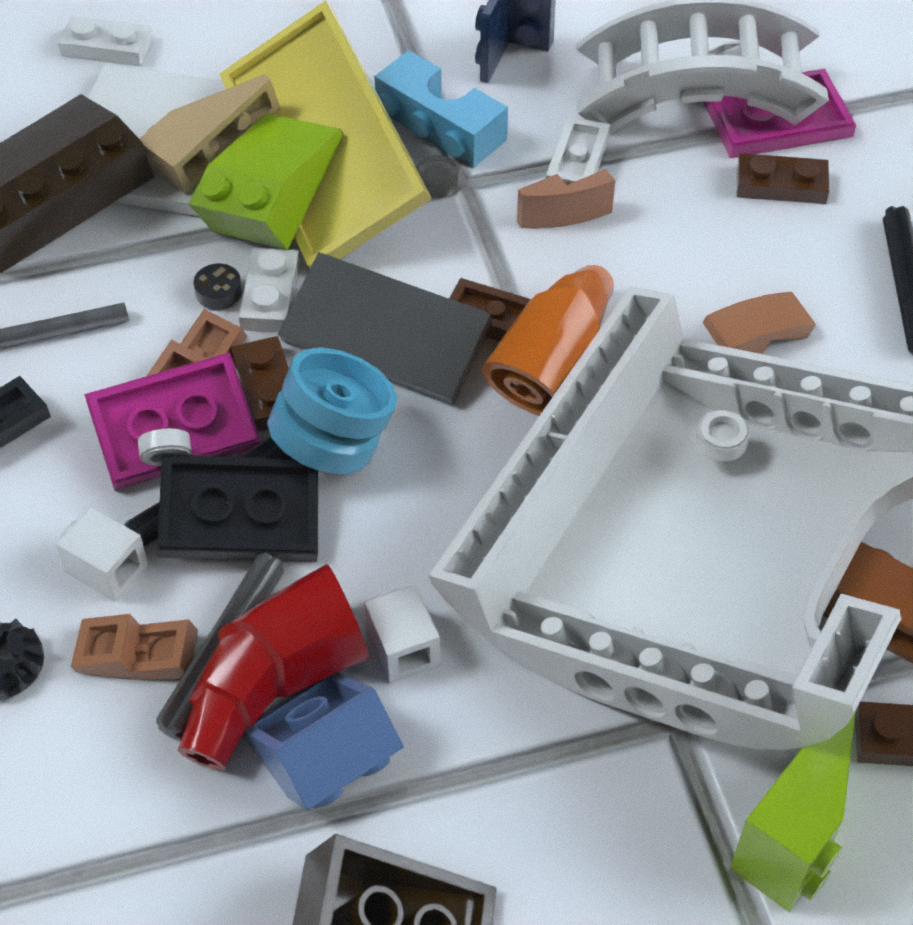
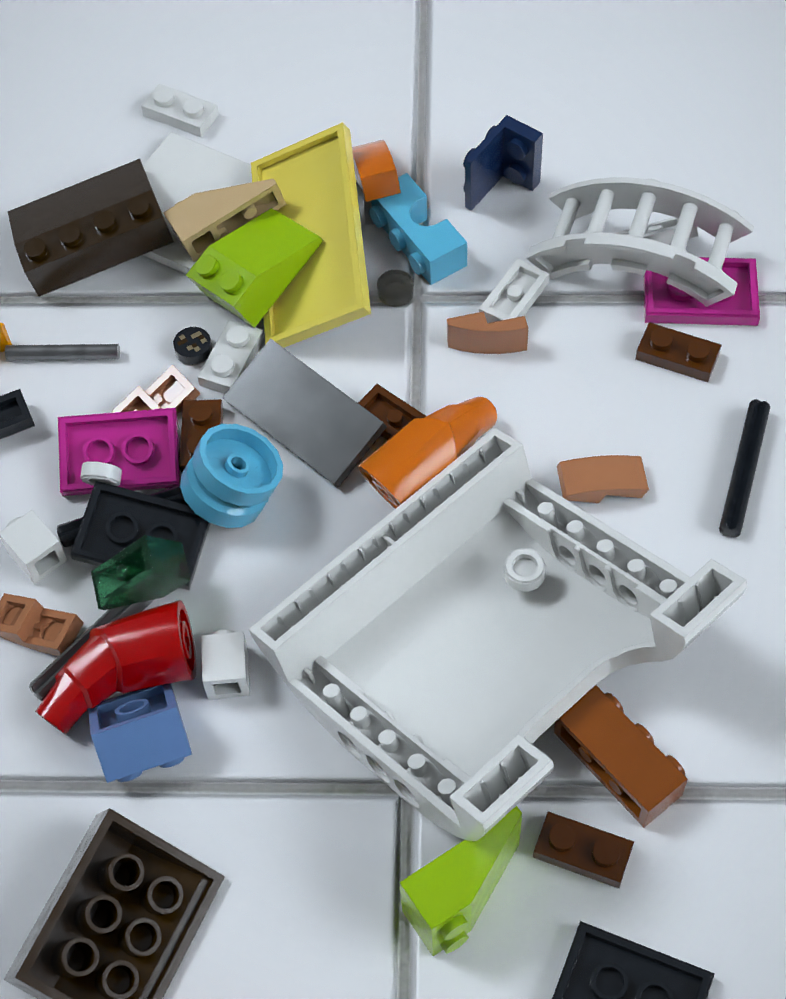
camera: 20 degrees right, 5 degrees up
(259, 547) = (140, 573): none -> clear green slope
(380, 52) = (375, 170): none -> orange slope

